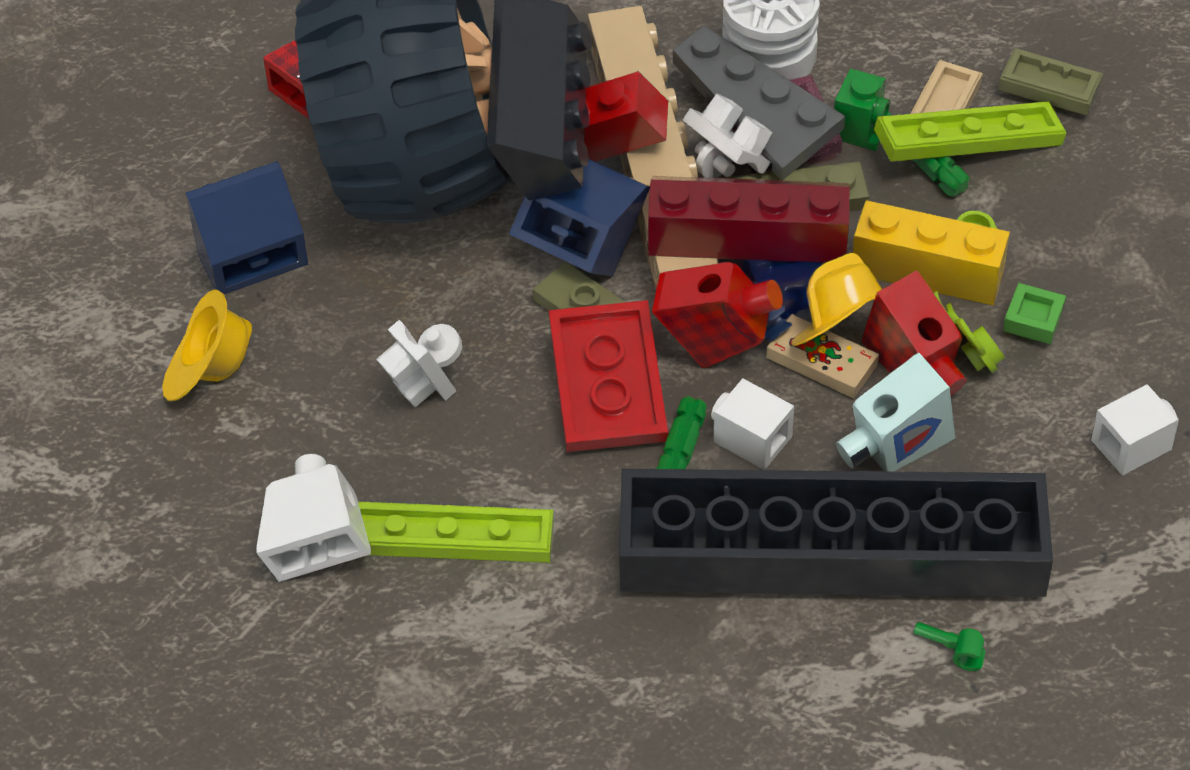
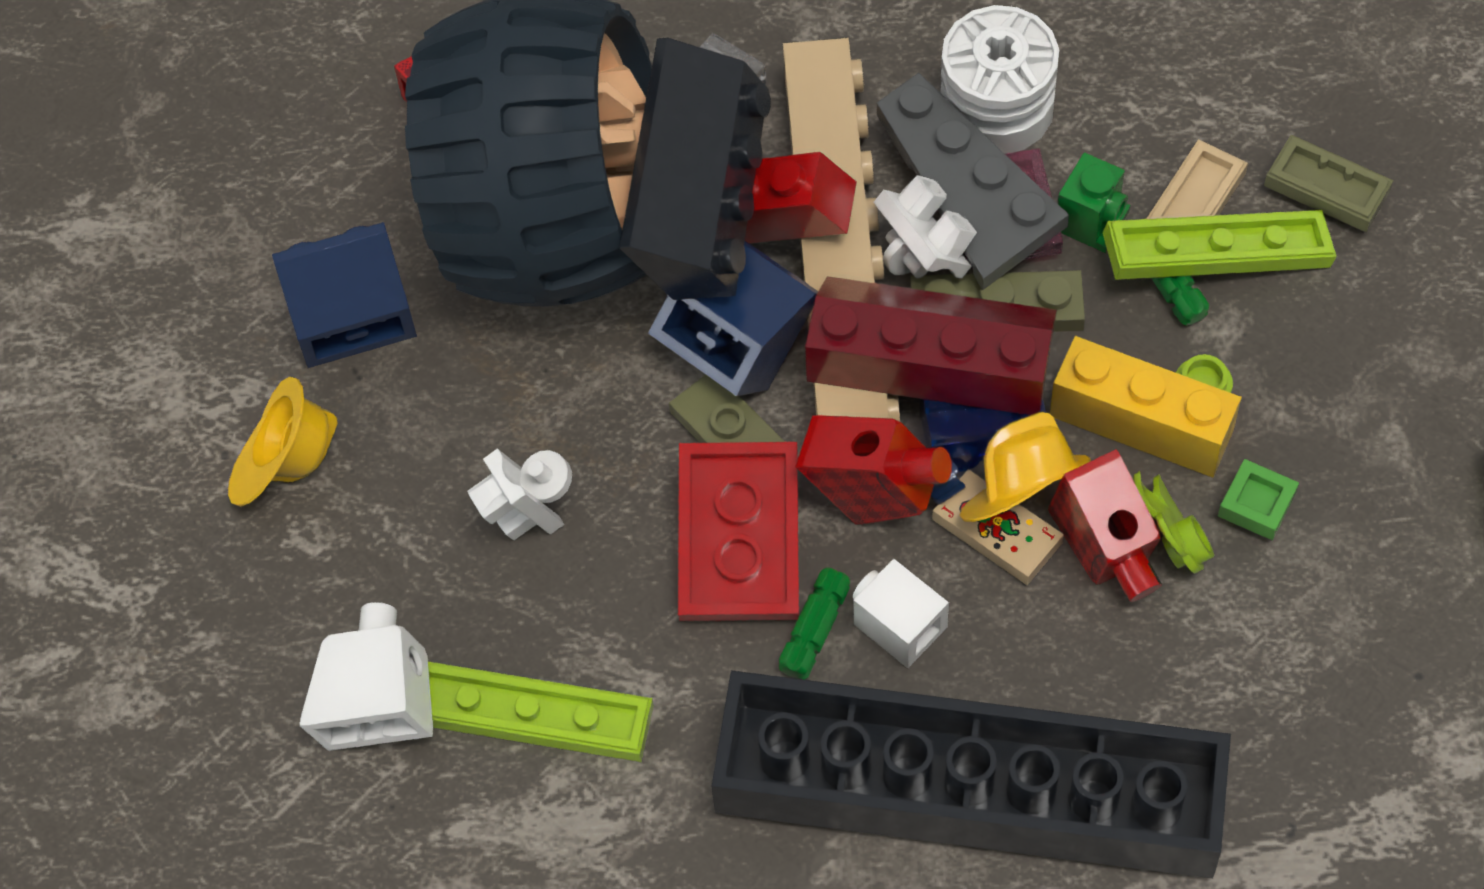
camera: 10 degrees right, 10 degrees up
(900, 418) = (1071, 631): light aqua torso -> none
(1135, 429) = (1354, 671): white brick -> none

